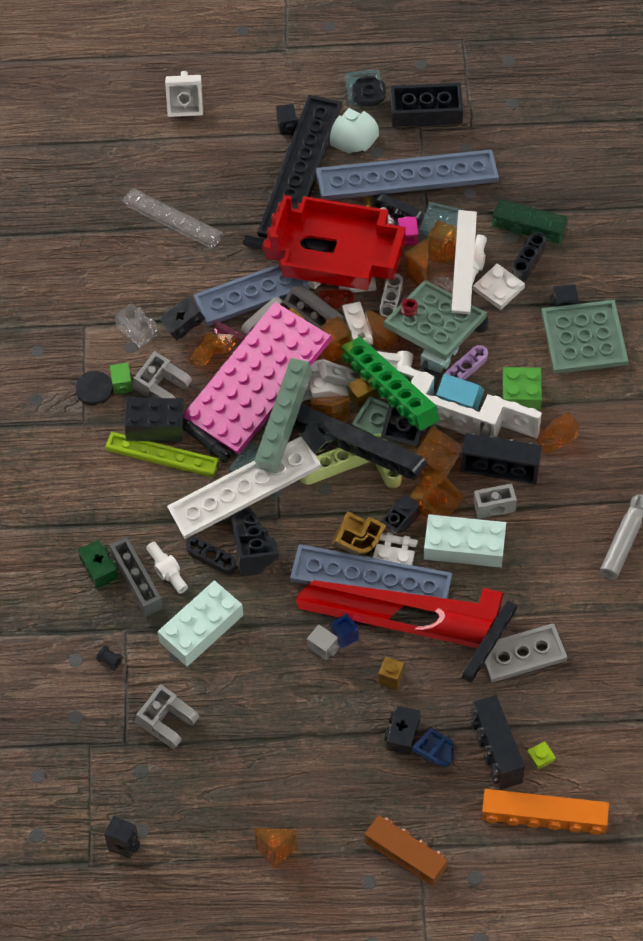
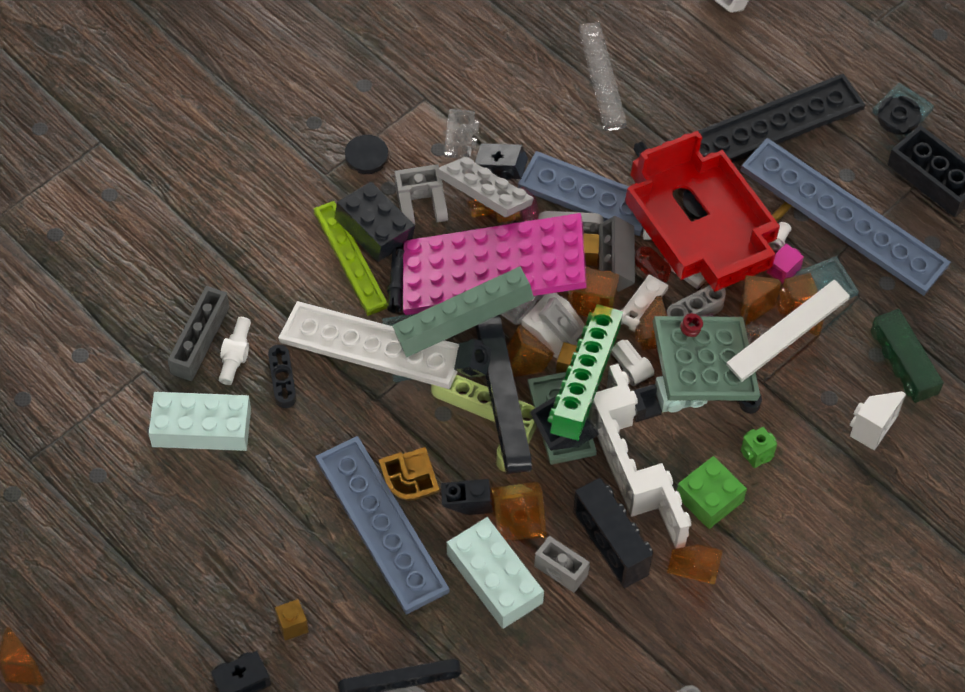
camera: 45 degrees right, 0 degrees up
(100, 573) = (186, 293): dark green brick -> none
(109, 658) = (101, 378): black bush -> none
(121, 378) = (391, 161): bright green brick -> none
(156, 709) = (74, 455): light grey brick -> none
(197, 338) = (485, 186): none -> light grey plate
(252, 542) = (321, 395): black wedge -> none
(286, 118) = (799, 76): black brick -> none
(322, 642) = (272, 536): light grey brick -> none
(345, 630) = (299, 544): clear blue panel -> none
(354, 132) = (843, 138): light aqua brick -> none
(394, 554) = (424, 525): white plate -> none
(397, 208) = (801, 238): black beam -> none
(438, 451) = (560, 472): clear orange brick -> none
(457, 622) = (396, 630): red panel -> none
(460, 391) = (647, 440): medium azure brick -> none
(469, 358) = (708, 420): lavender beam -> none
(479, 257) = (813, 343): white pin -> none
(498, 286) = (808, 386): white plate -> none
(516, 342) = (758, 446): none -> bright green brick
(529, 256) = (873, 377): black beam -> none
(559, 267) = (875, 418): none -> white slope
(564, 295) = (853, 451): black brick -> none
(584, 336) = (829, 502): sand green plate -> none

